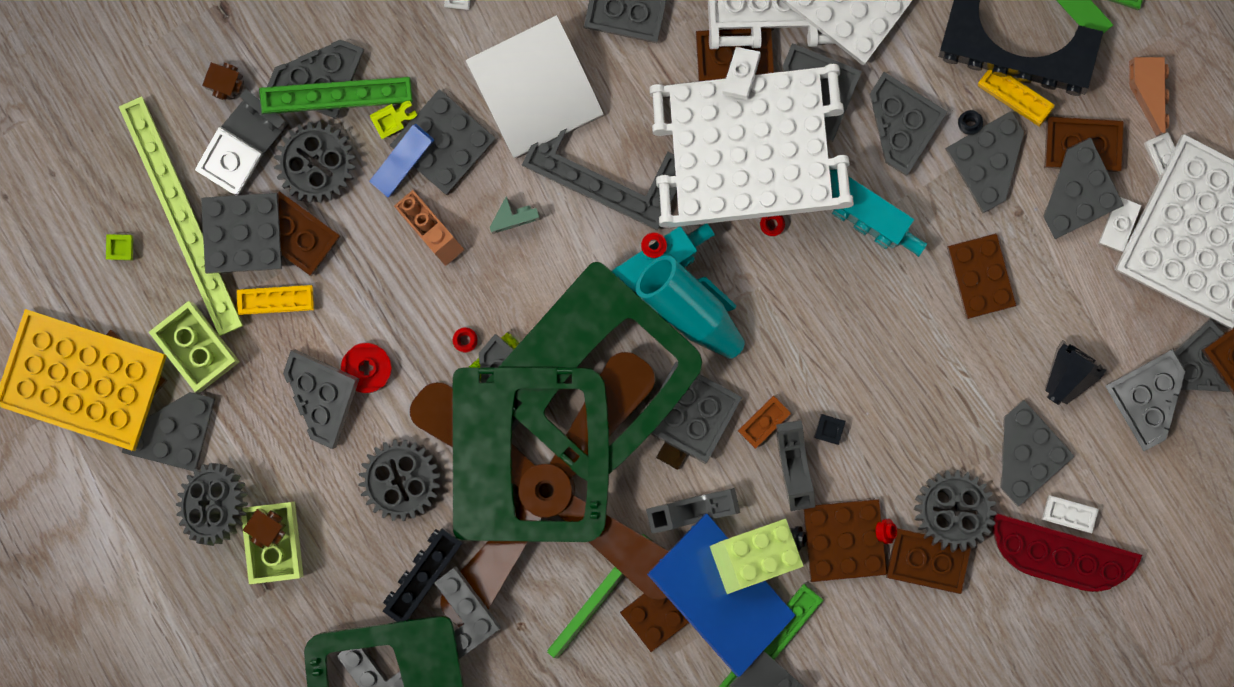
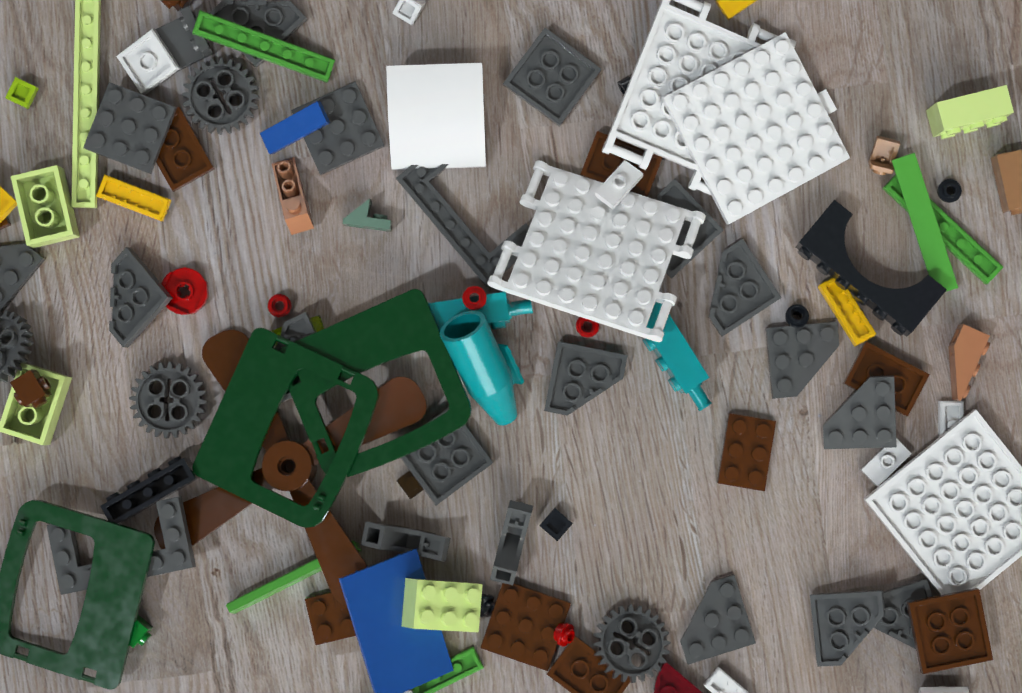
camera: 25 degrees right, 0 degrees up
(389, 120) = (300, 88): neon yellow plate -> none
(764, 421) = (502, 492): dark orange plate -> none
(788, 275) = (580, 376): none -> dark grey plate
(1071, 374) = (785, 571): black cone -> none

